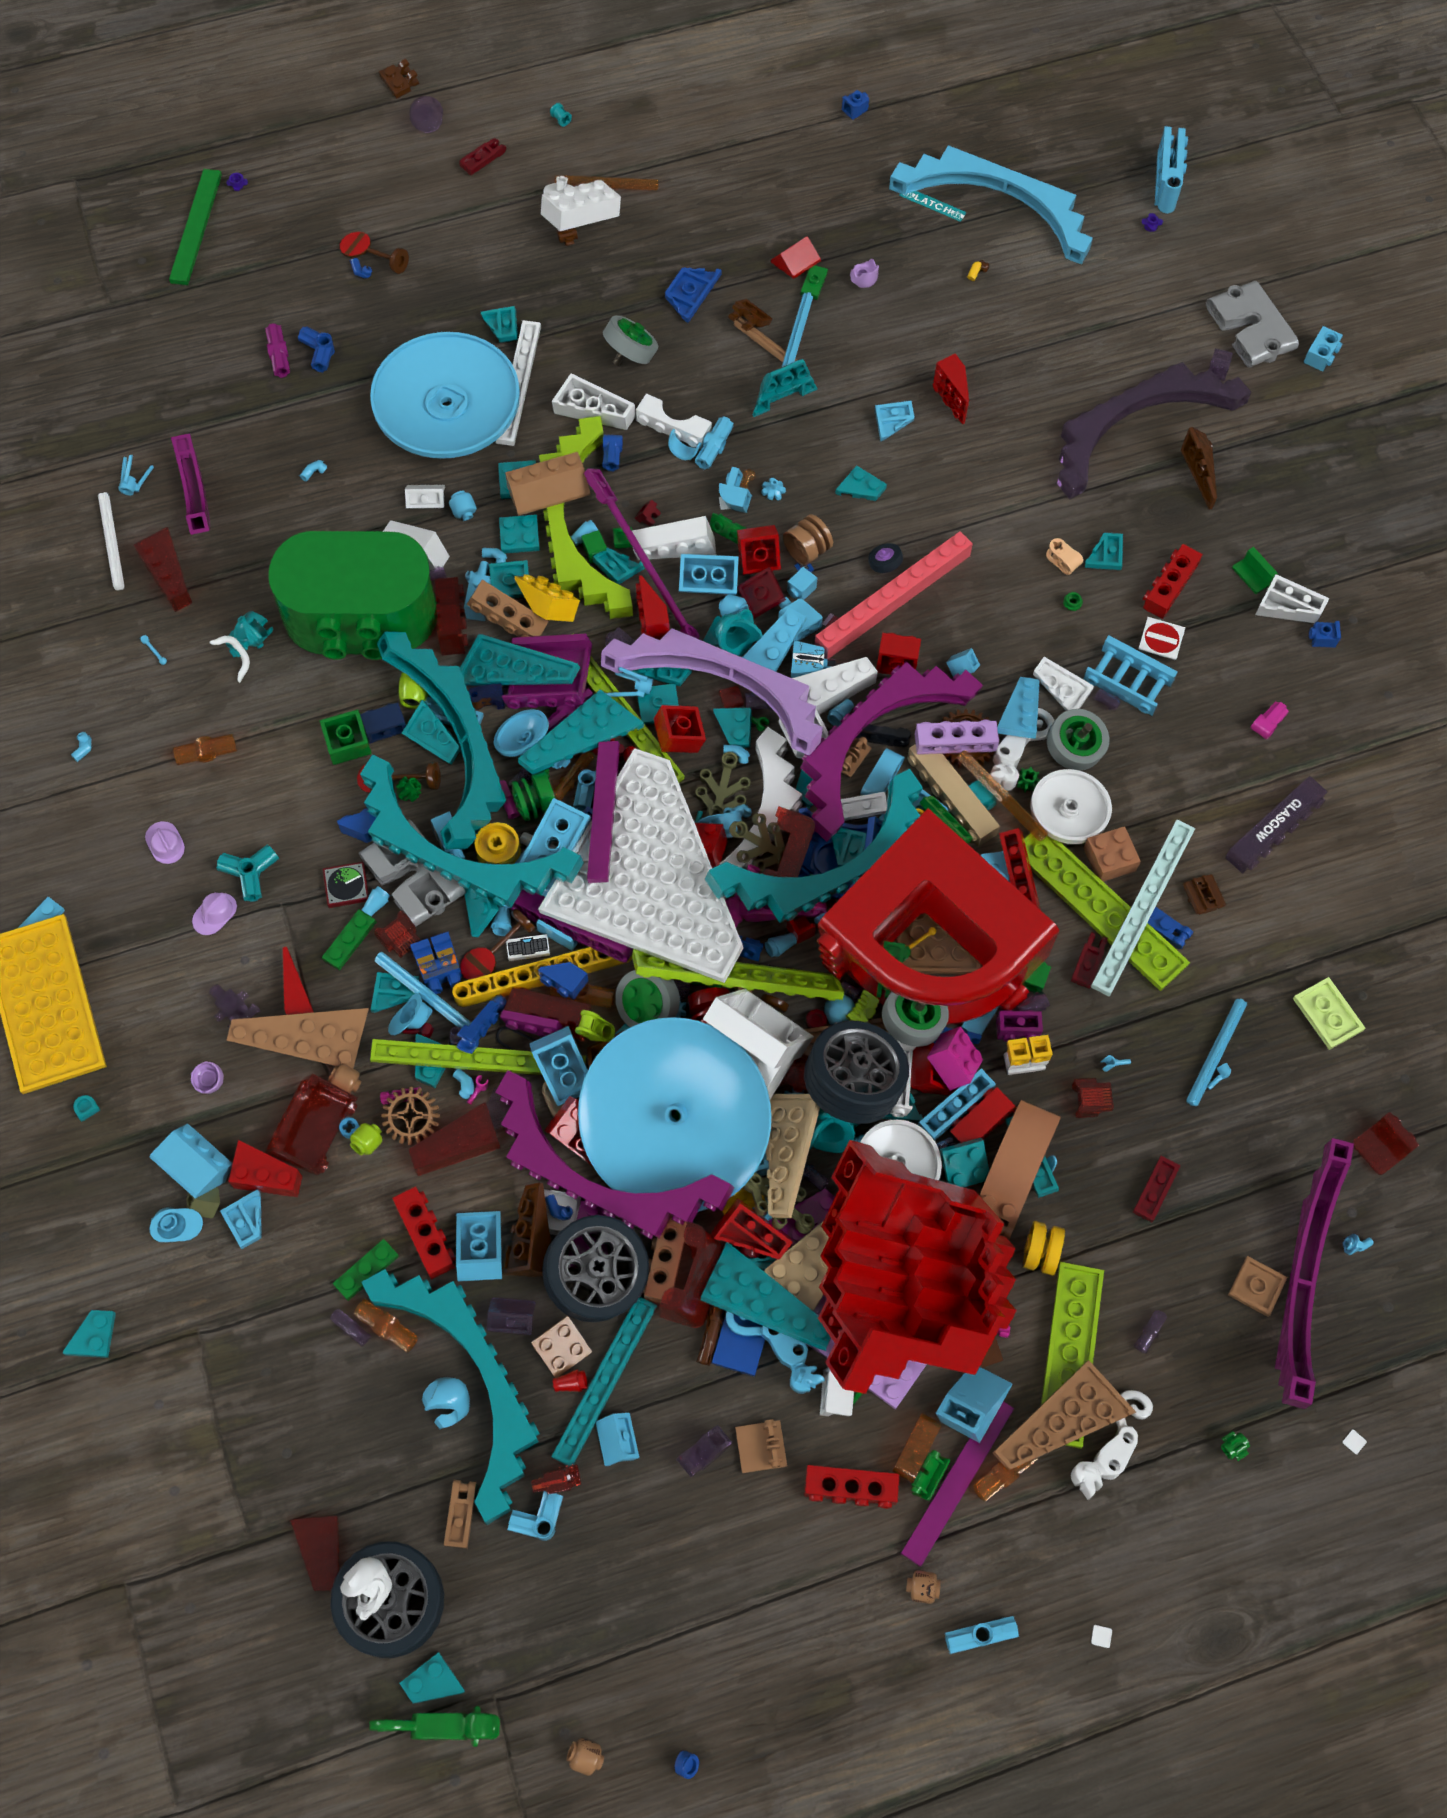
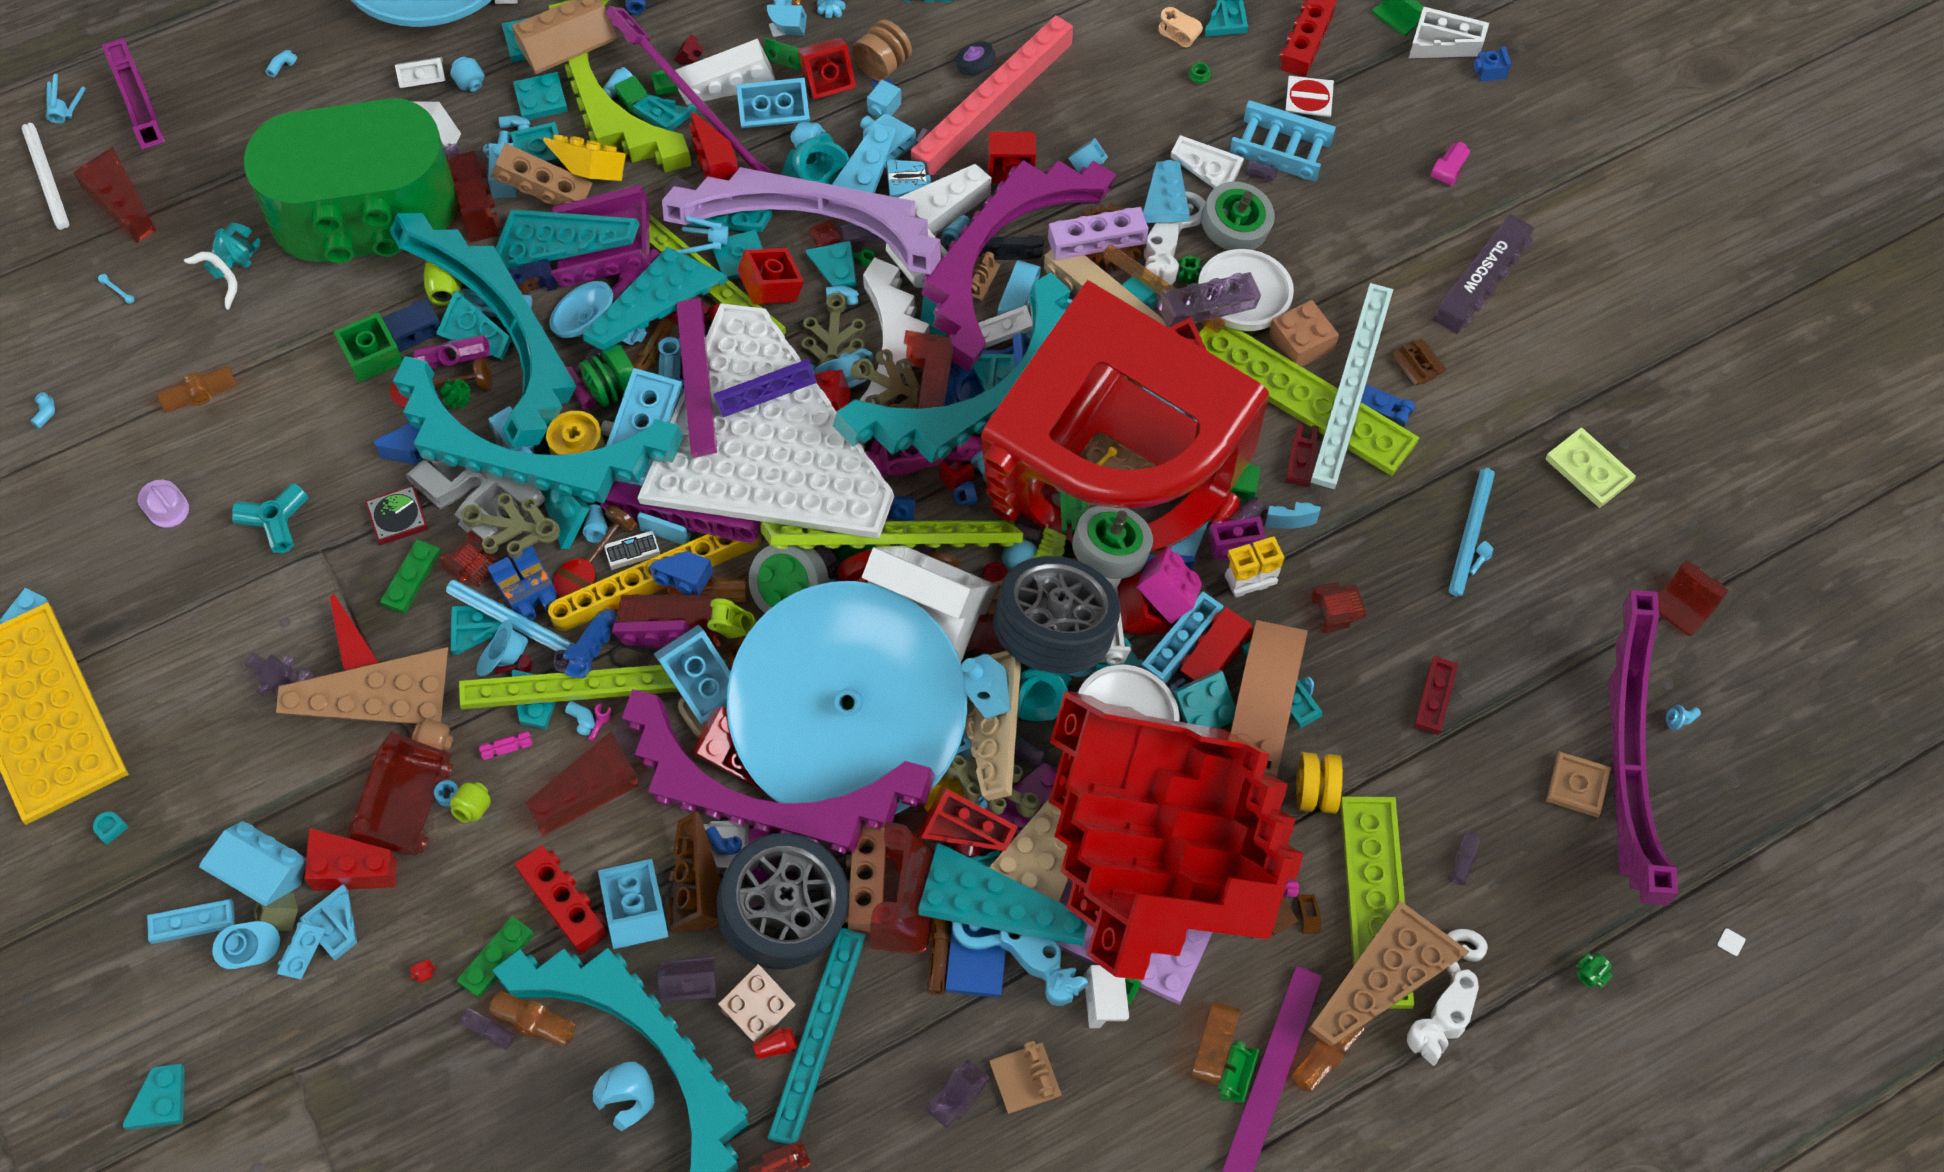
camera: 10 degrees left, 5 degrees down
(137, 1196) = (190, 921): none -> medium azure tile
(207, 1077) = (258, 764): lavender hair -> none
(214, 913) = (237, 573): lavender piece -> none
(217, 1237) = (301, 949): none -> medium azure hinge
(307, 1271) = (422, 971): none -> red plate
(375, 901) = (436, 526): medium azure cone -> none
(411, 1096) = (509, 765): medium nougat gear -> none
(422, 752) = (465, 350): none -> magenta piece
(437, 913) = (512, 526): none -> olive plant
(617, 1438) = (845, 1101): medium azure panel -> none
(656, 833) = (765, 388): none -> dark purple fence
(761, 592) = (839, 115): dark red tile -> none
(777, 945) = (933, 497): medium azure cone -> none
(788, 1123) = (985, 677): none -> medium azure torso
(808, 943) = (970, 494): none -> blue tile
(887, 1483) = (1187, 1090): red brick -> none
(973, 1403) = (1272, 978): medium azure slope -> none
(1014, 1354) = (1309, 914): none -> reddish brown piece
(1066, 804) = (1243, 297): none -> clear purple brick
(1077, 1014) = (1302, 516): none -> medium azure slope
(1112, 1062) = (1352, 562): medium azure hand -> none

